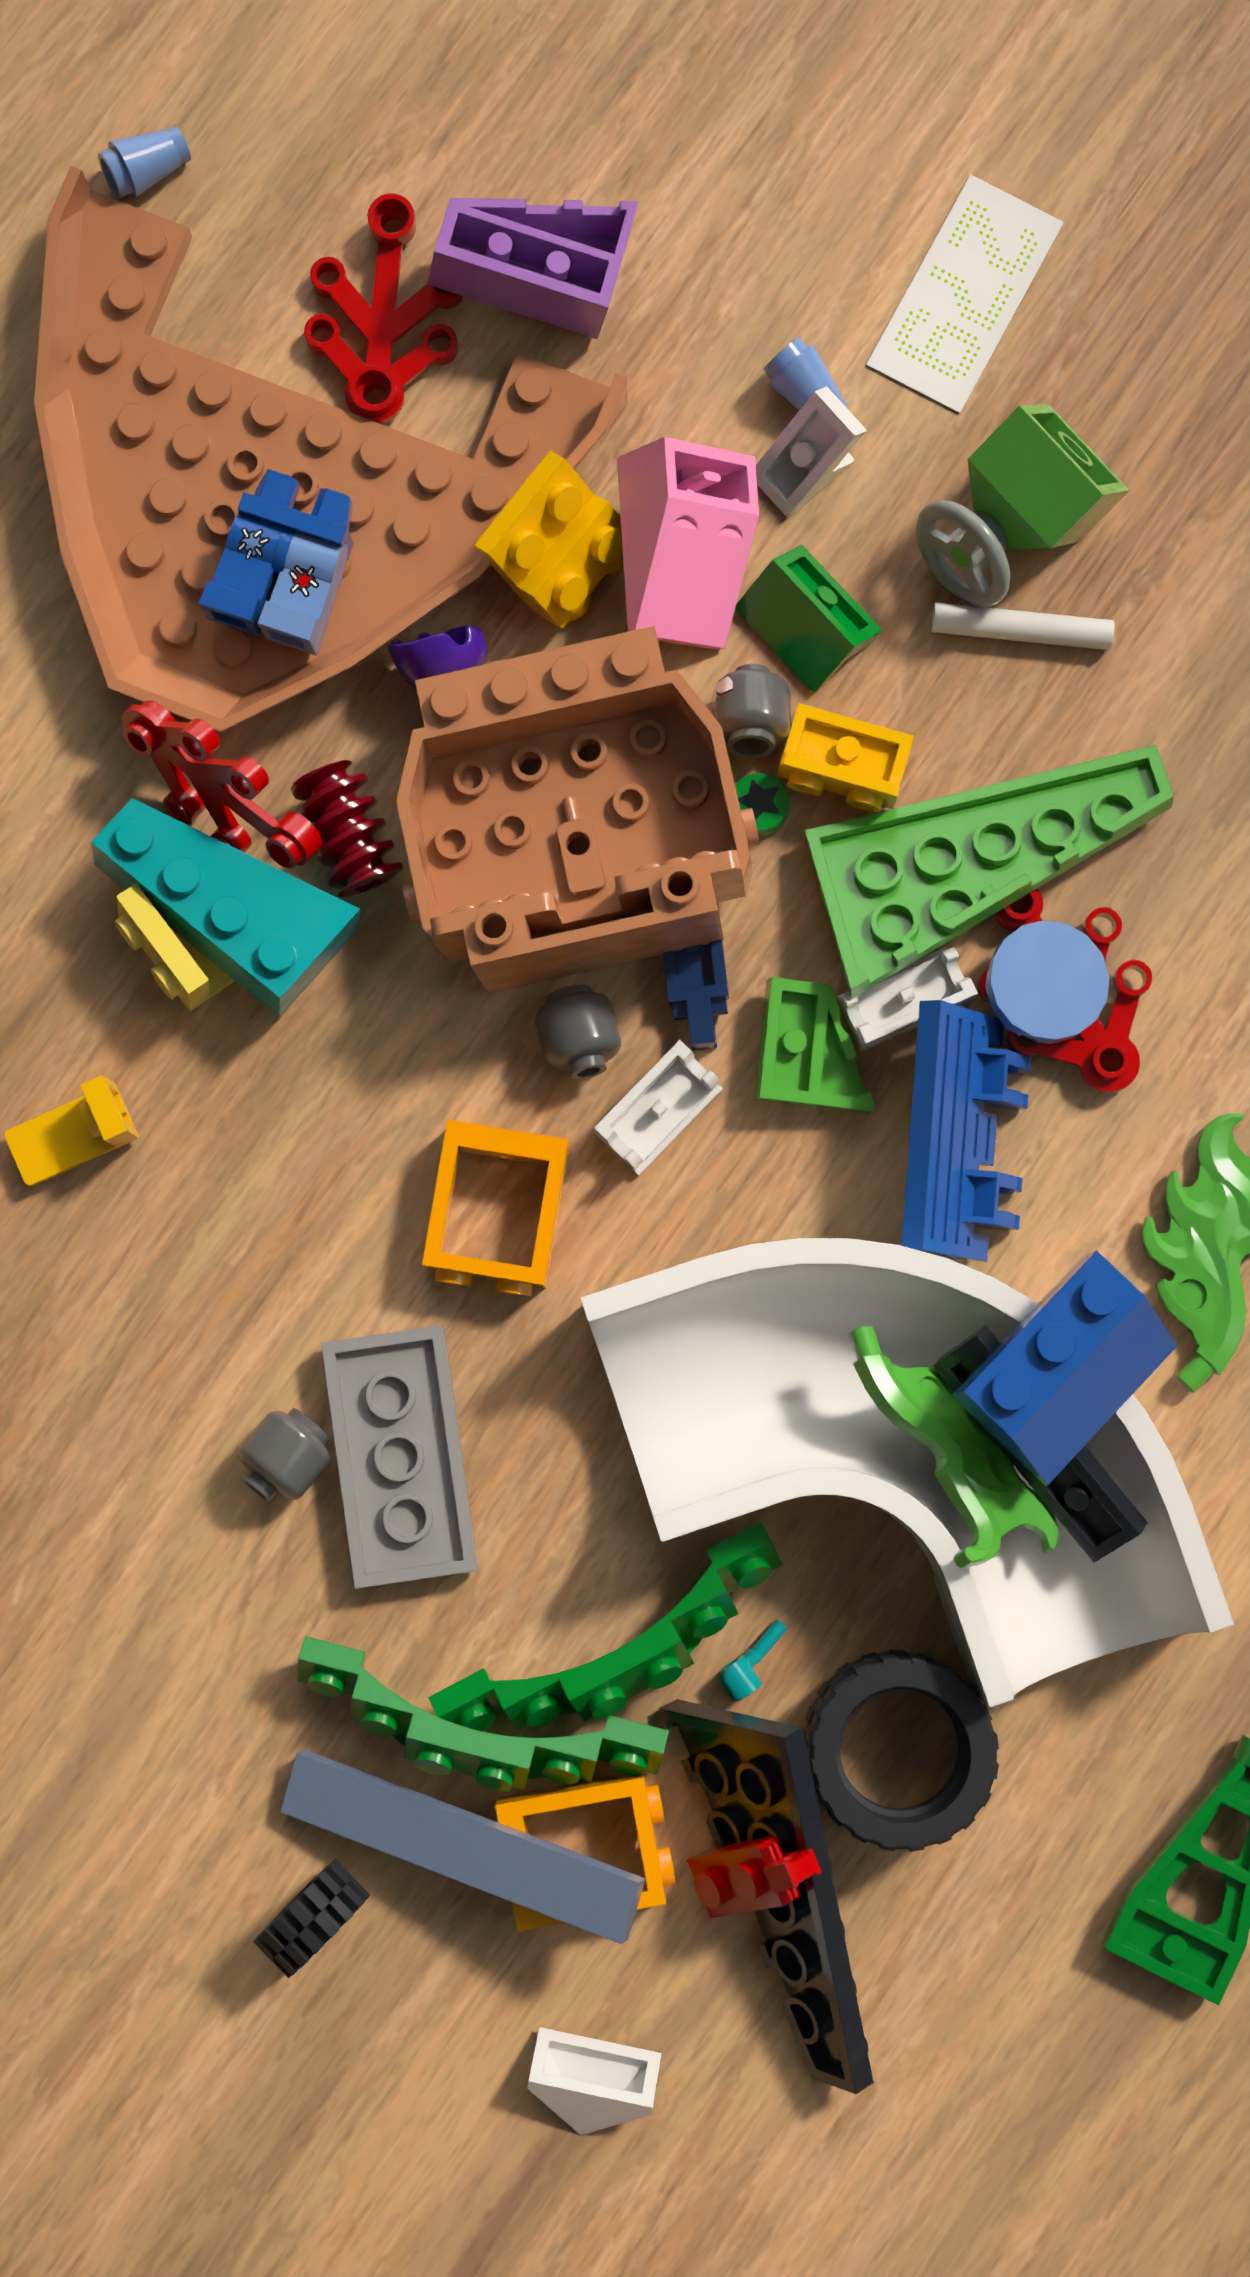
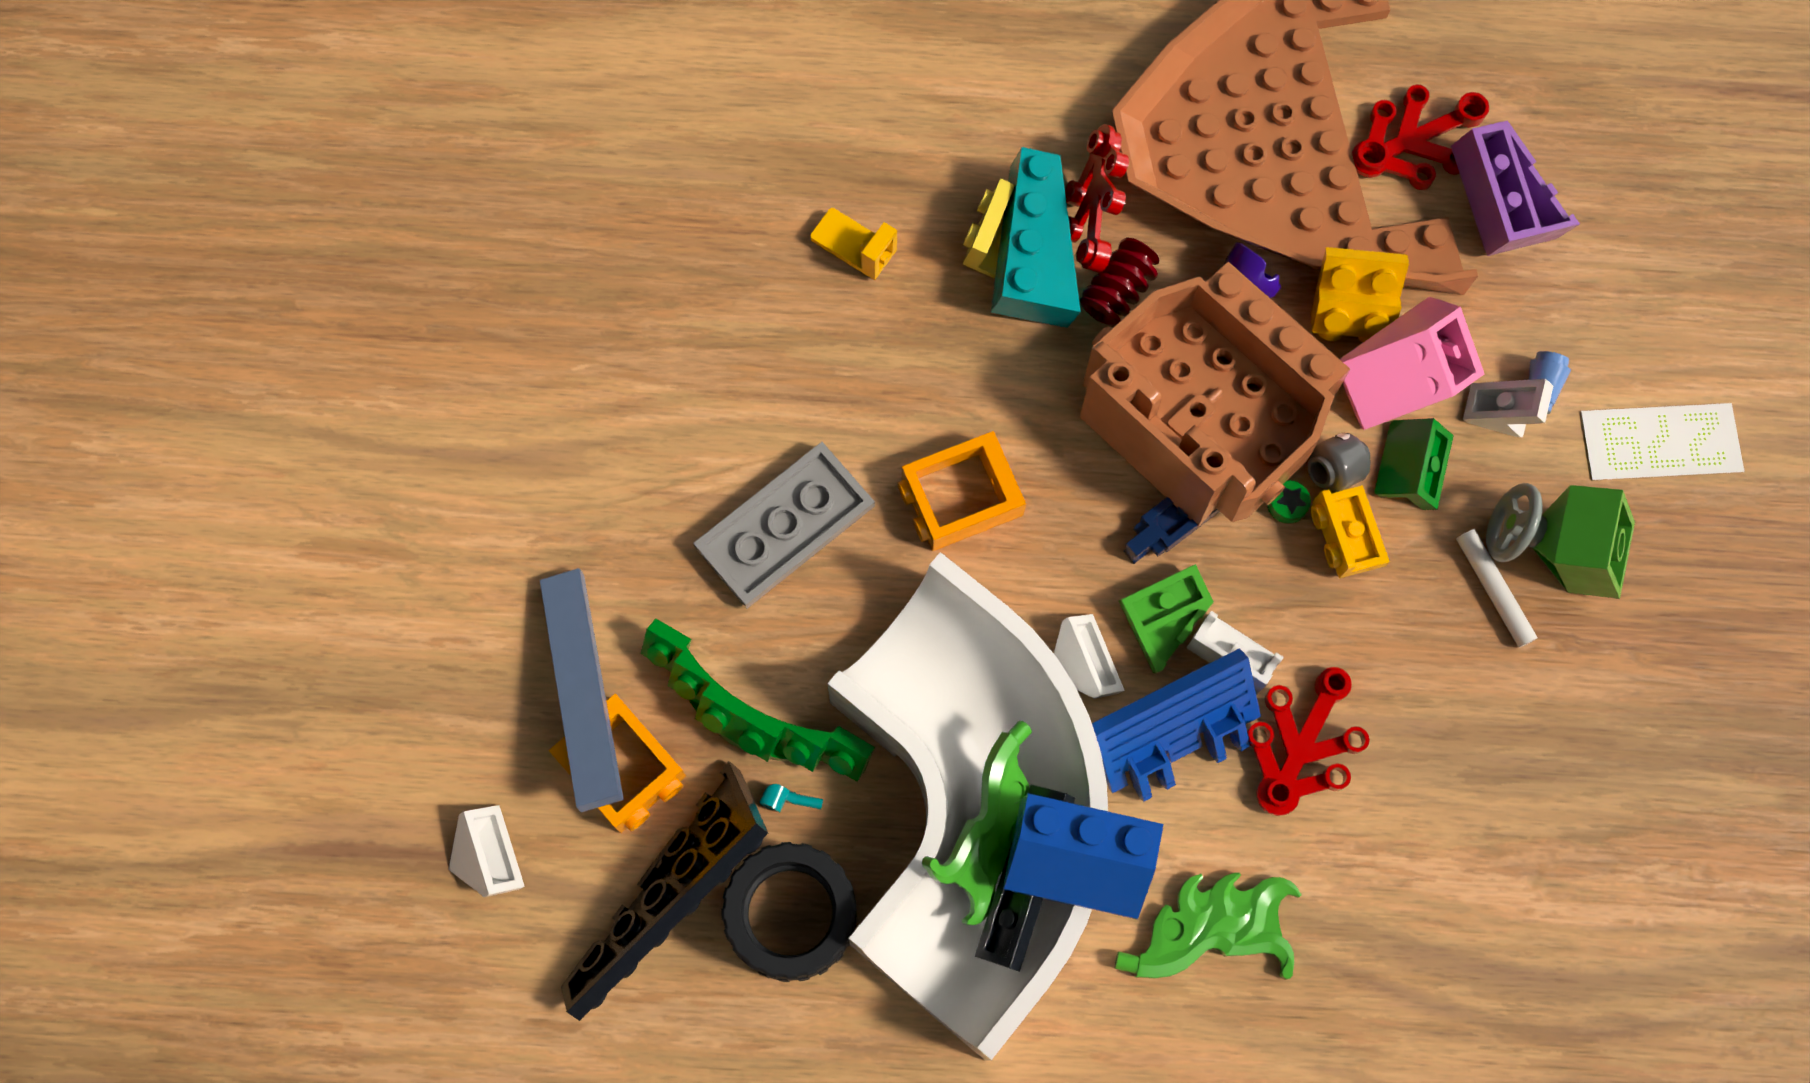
camera: 50 degrees right, 10 degrees down
(281, 564) = (1242, 159): hips -> none
(284, 1455) = (745, 459): dark grey head -> none
(311, 1918) = (488, 629): black tyre -> none
(491, 1758) = (641, 674): green piece -> none
(578, 1031) = (1091, 476): dark grey head -> none
(658, 1108) = (1077, 547): white hinge -> none
(750, 1876) = (660, 867): red hinge -> none
(802, 1188) = (1086, 657): none -> white slope
(944, 864) = (1326, 623): bright green wing -> none
(1047, 981) = (1300, 724): medium blue tile -> none

